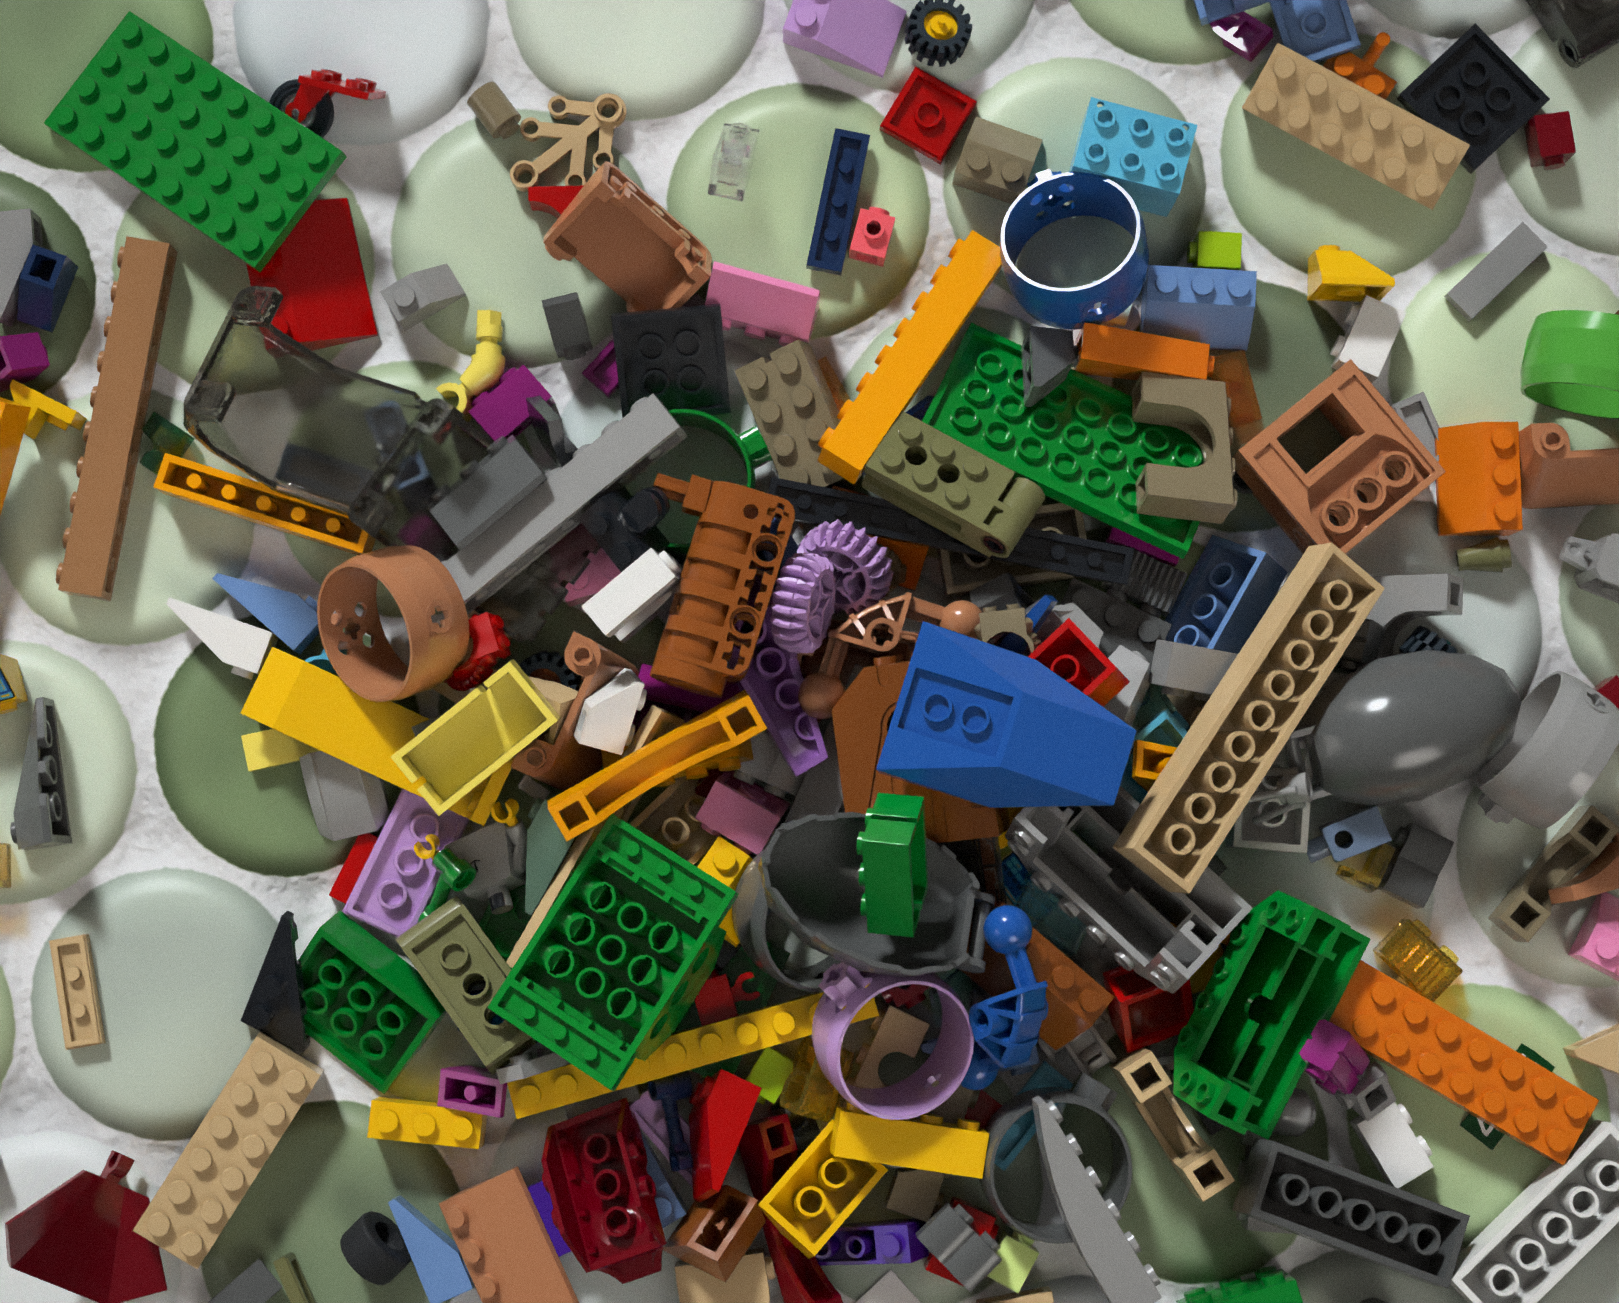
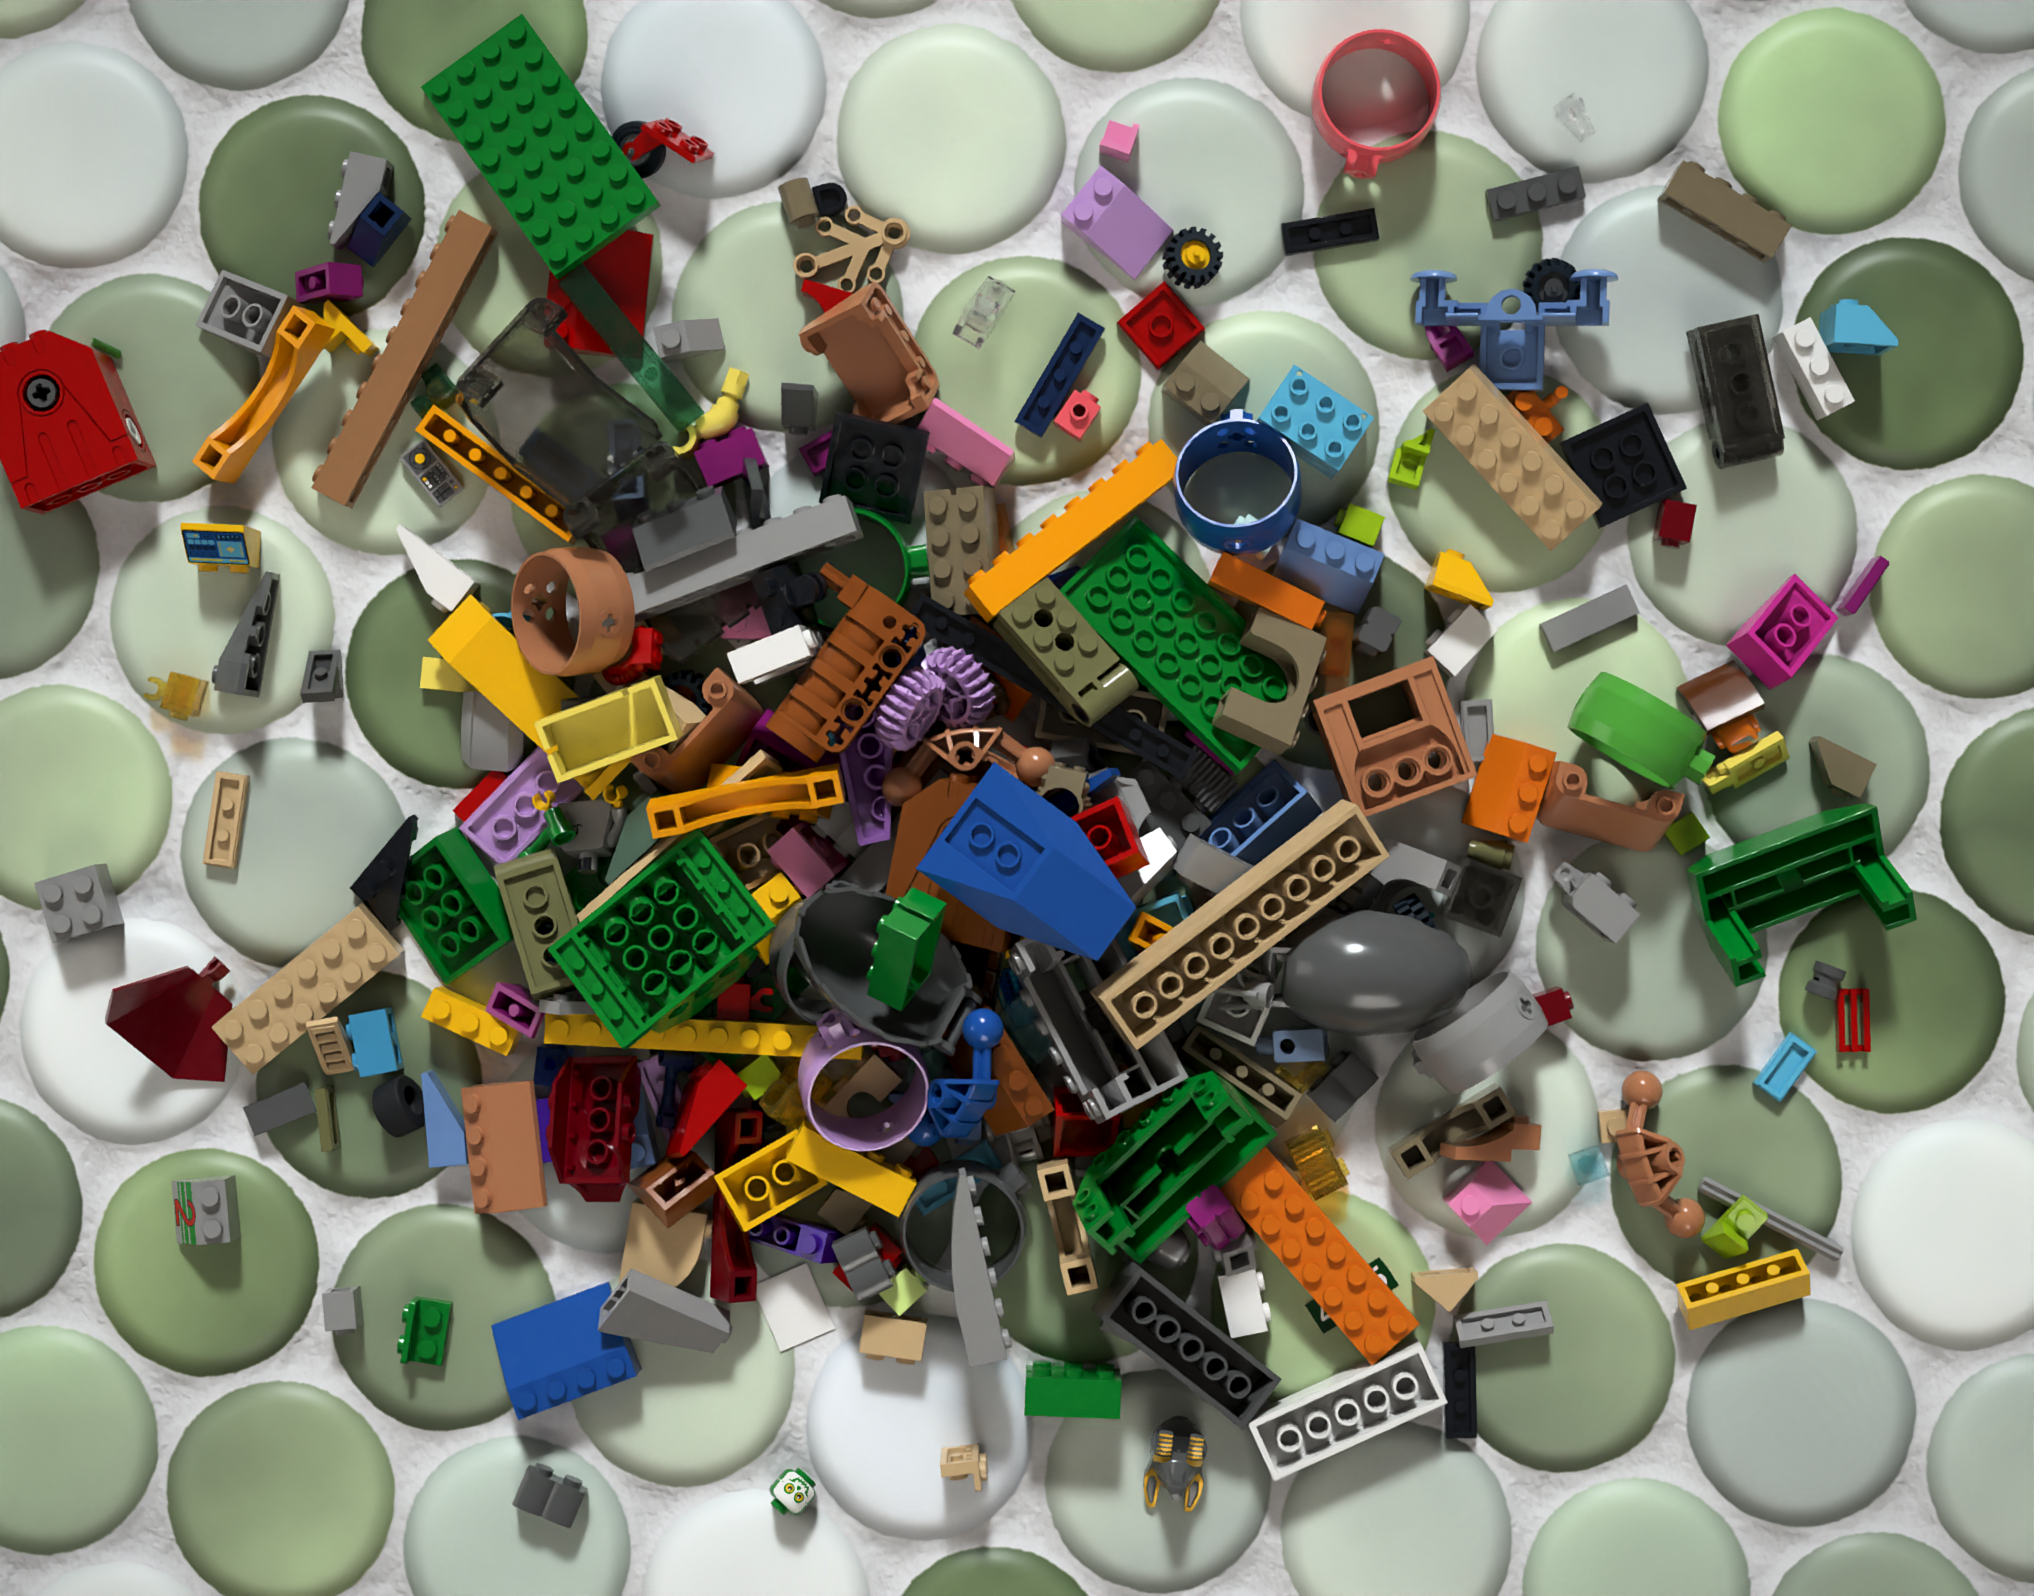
camera: 20 degrees right, 5 degrees up
(136, 795) = (322, 677): none -> dark grey slope
(187, 532) = (432, 473): none -> tile
(280, 611) = (489, 568): medium blue slope -> none
(280, 1208) = (332, 1049): none -> tan slope
(323, 1185) = (374, 1042): none -> dark azure brick
(363, 321) = (630, 348): none -> clear green tile
(527, 97) = (830, 199): none -> black tile
(529, 1140) = (549, 1062): none -> clear blue brick
(609, 713) = (724, 743): white slope -> none
(1046, 361) = (1183, 571): dark grey slope -> none
(1244, 168) = (1410, 461): none -> lime slope
(1259, 877) = (1267, 1093): none -> dark tan brick
(1276, 358) = (1375, 632): none -> dark grey brick
(1494, 606) = (1481, 897): none -> clear smoke brick

